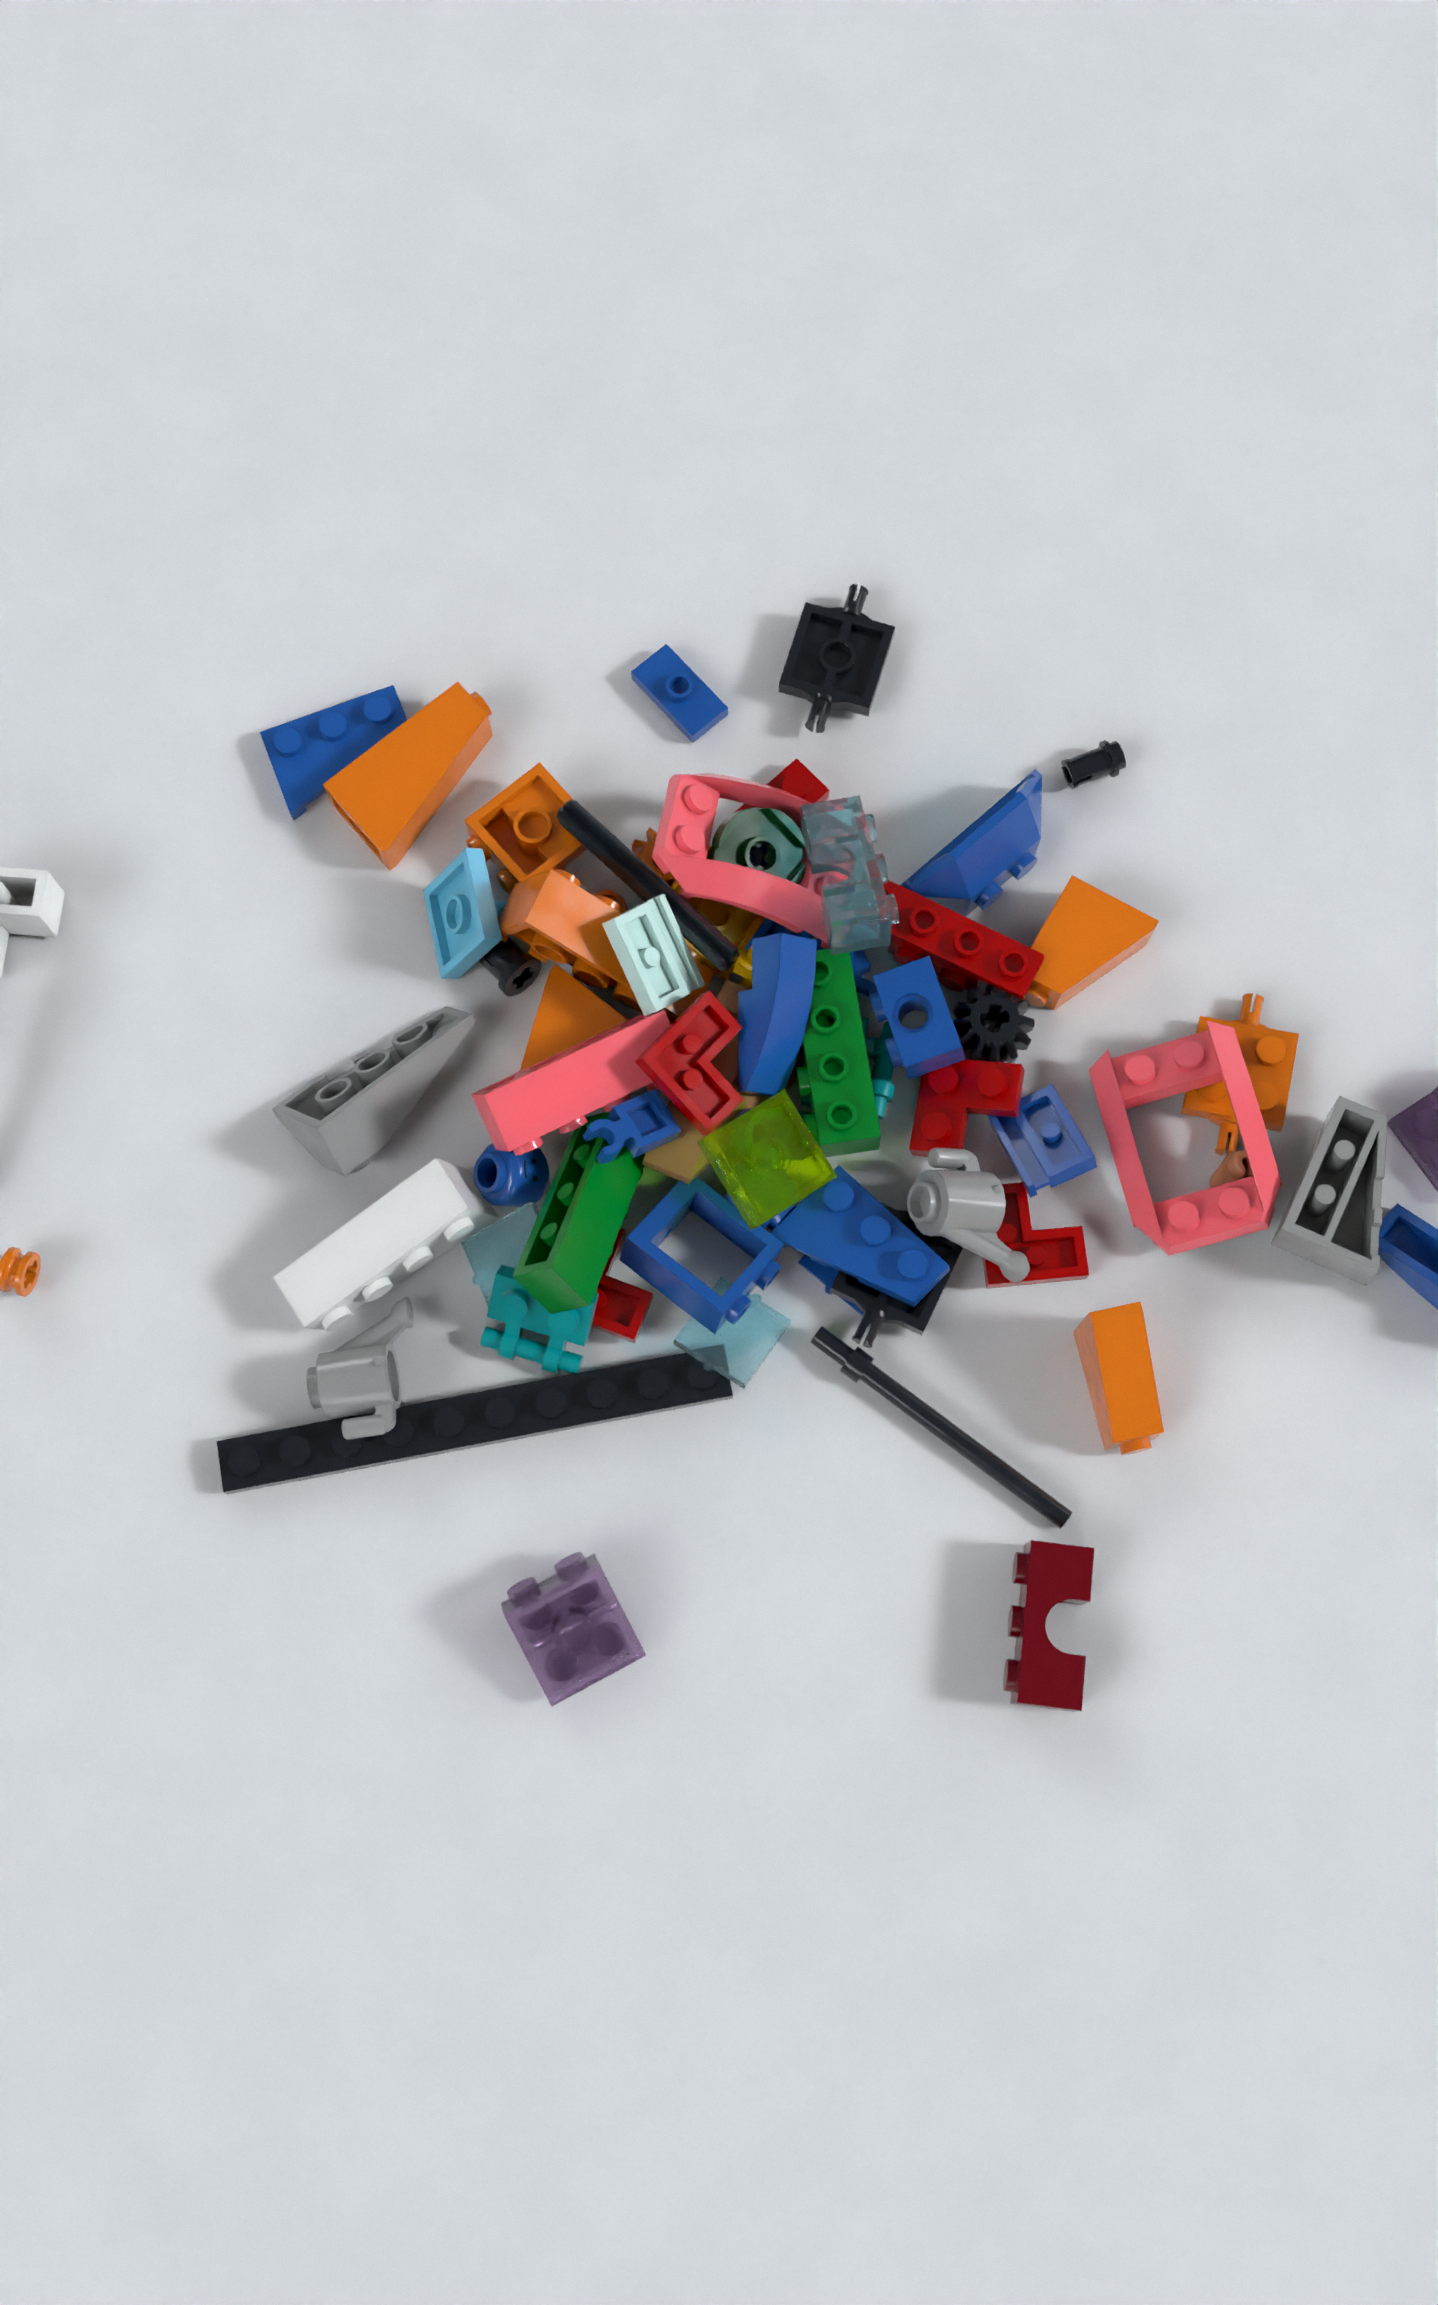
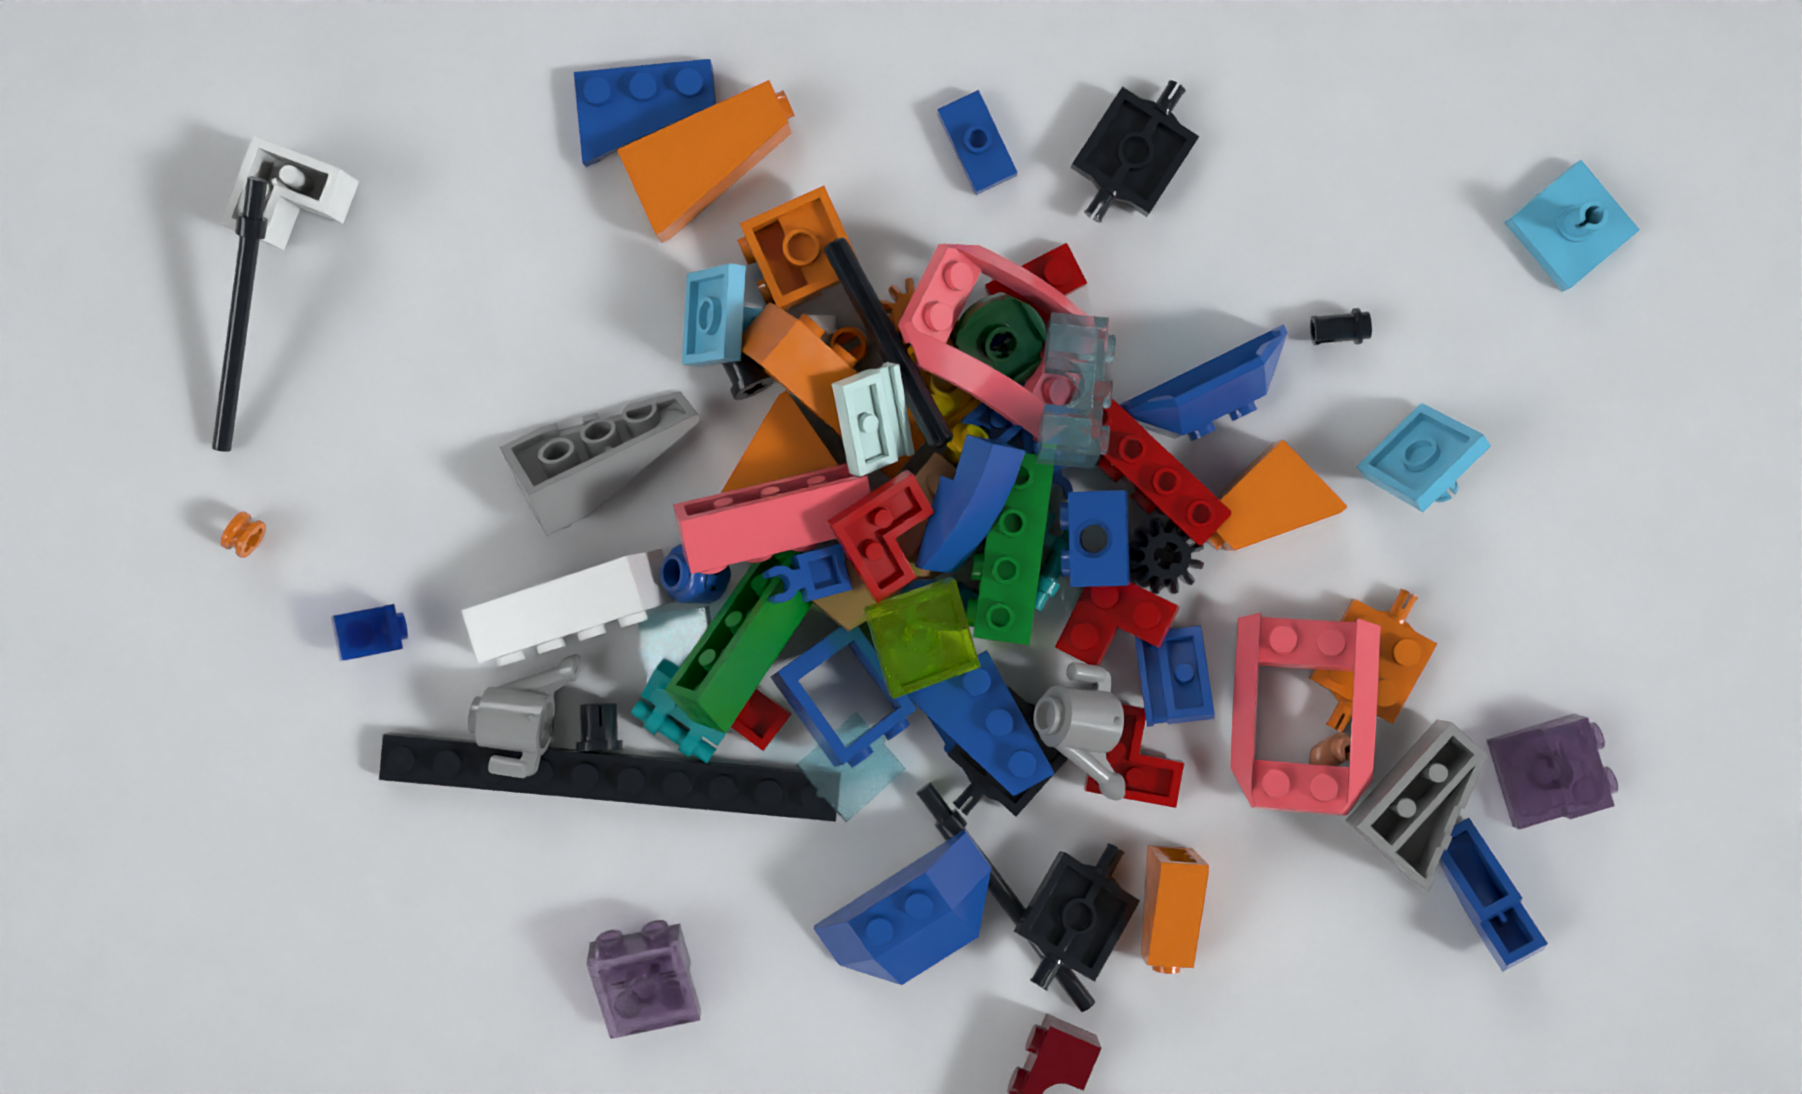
camera: 15 degrees right, 15 degrees up
(178, 1334) = (369, 632): none -> clear blue bracket
(451, 1368) = (599, 728): none -> black bush
(845, 1471) = (913, 914): none -> blue wedge
(1022, 1419) = (1077, 916): none -> black plate
(1219, 857) = (1423, 457): none -> medium azure tile
(1283, 615) = (1572, 225): none -> medium azure tile

